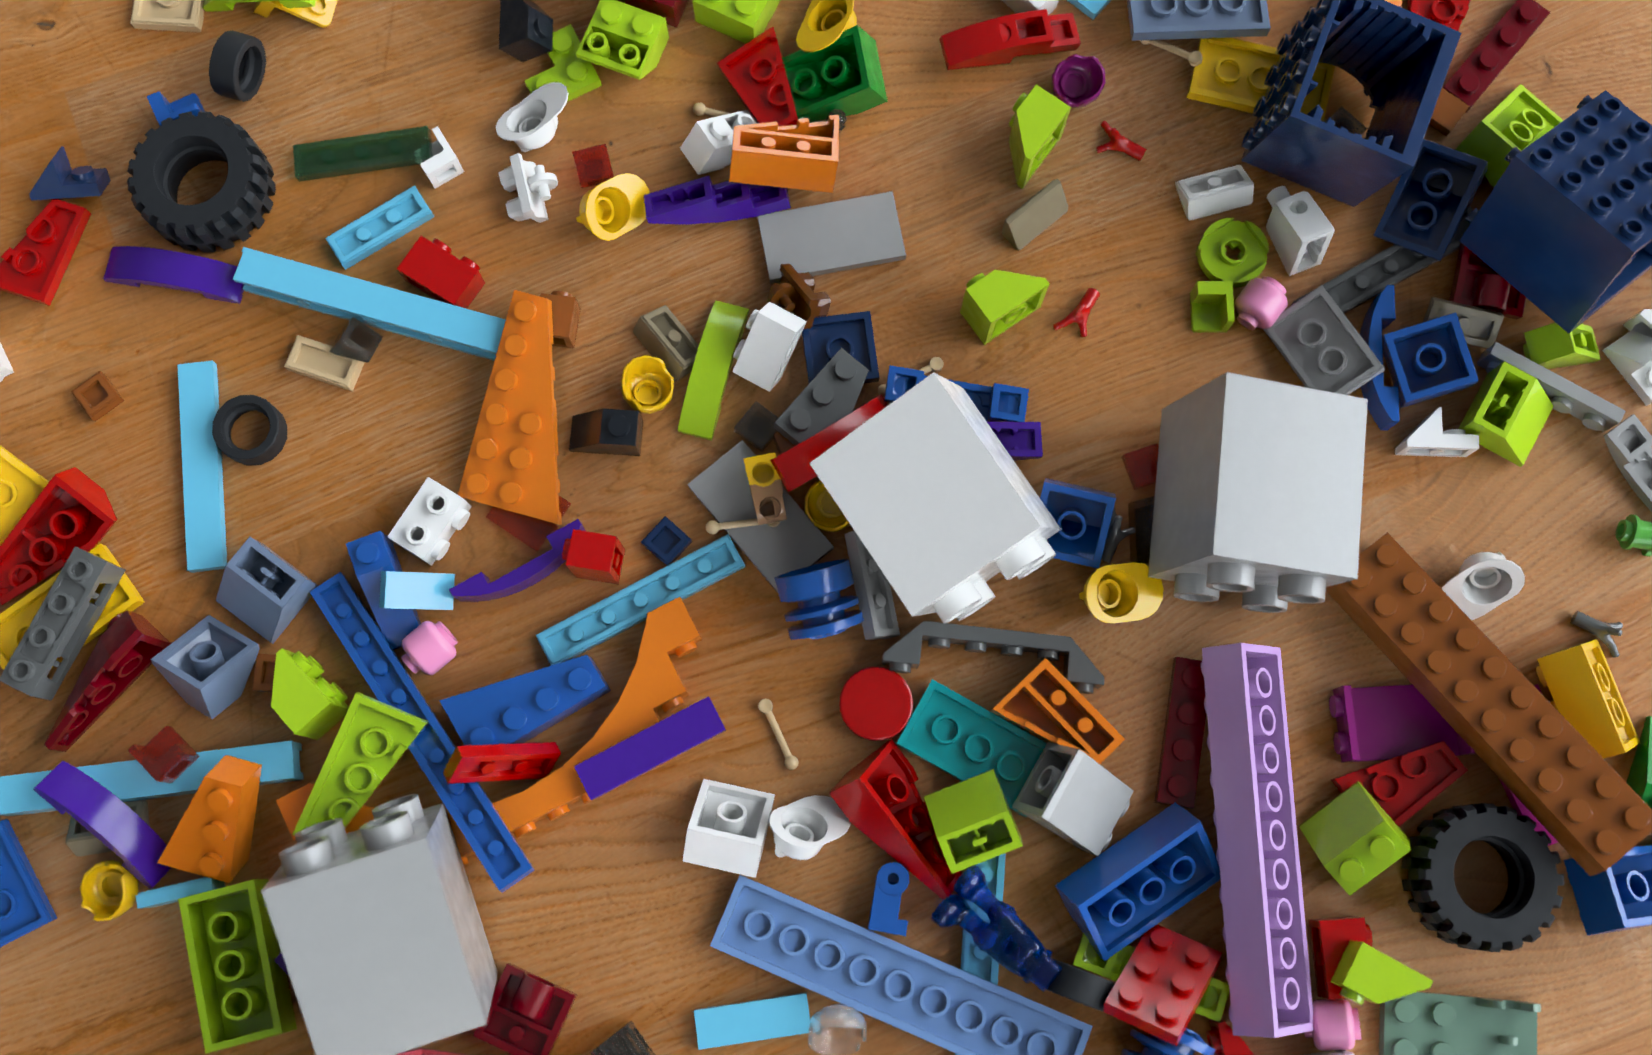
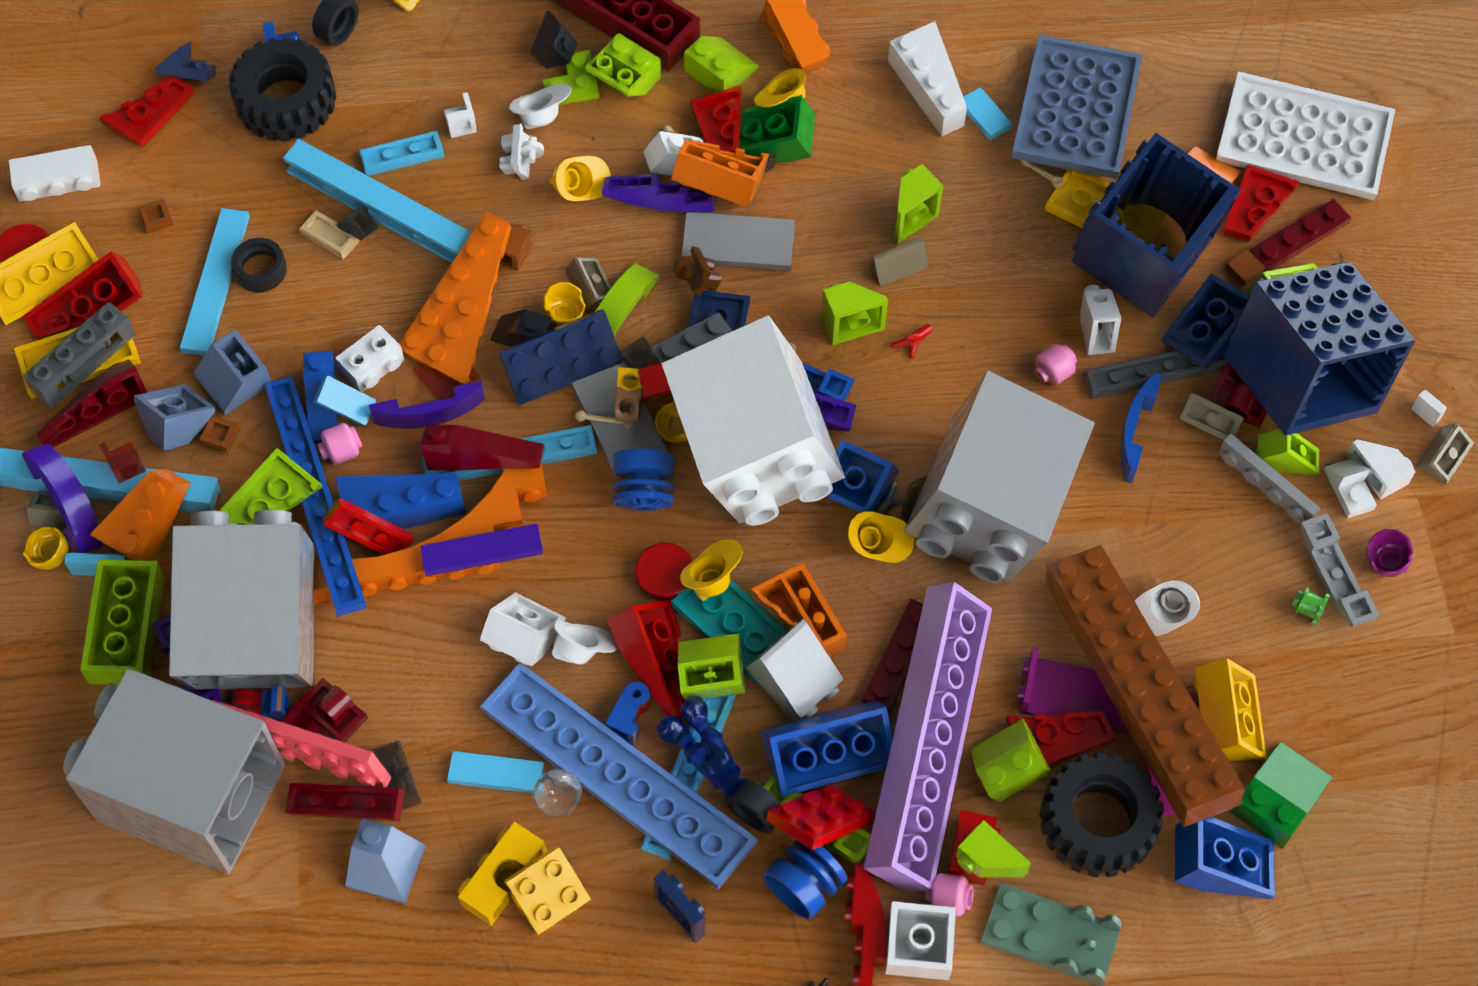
camera: 15 degrees right, 15 degrees down
(173, 270) = (241, 144): dark purple slope -> none
(304, 697) = (237, 448): lime slope -> none
(362, 153) = (405, 100): clear green tile -> none
(441, 274) = (436, 192): red brick -> none
(593, 165) = (573, 146): clear red plate -> none
(594, 556) = (485, 407): red brick -> none
(600, 610) = (475, 449): none -> dark red wedge
(665, 457) = (560, 356): none -> dark blue plate
(666, 541) = (543, 419): dark blue tile -> none
(766, 706) = (580, 555): tan hinge -> none
(768, 345) = (663, 298): white brick -> none
(872, 591) = (687, 491): light grey plate -> none
(938, 694) = (711, 569): none -> yellow piece
(1007, 37) = (912, 133): red slope -> none
(1076, 668) = (760, 545): dark grey slope -> none
(1078, 80) = (961, 177): magenta hair -> none
(1120, 143) = (983, 230): red bar -> none
(1142, 466) = (924, 456): clear red plate -> none
(1212, 306) = (1016, 358): lime panel -> none
(1215, 192) = (1046, 281): white slope -> none
(1235, 234) = (1045, 310): lime plate -> none
(1323, 345) = (1096, 397): light grey tile -> none
(1429, 360) = (1172, 434): blue brick -> none
(1431, 440) = (1157, 495): white slope -> none
(1508, 413) = (1228, 490): lime slope -> none
(1599, 629) = (1257, 667): dark grey bar -> none

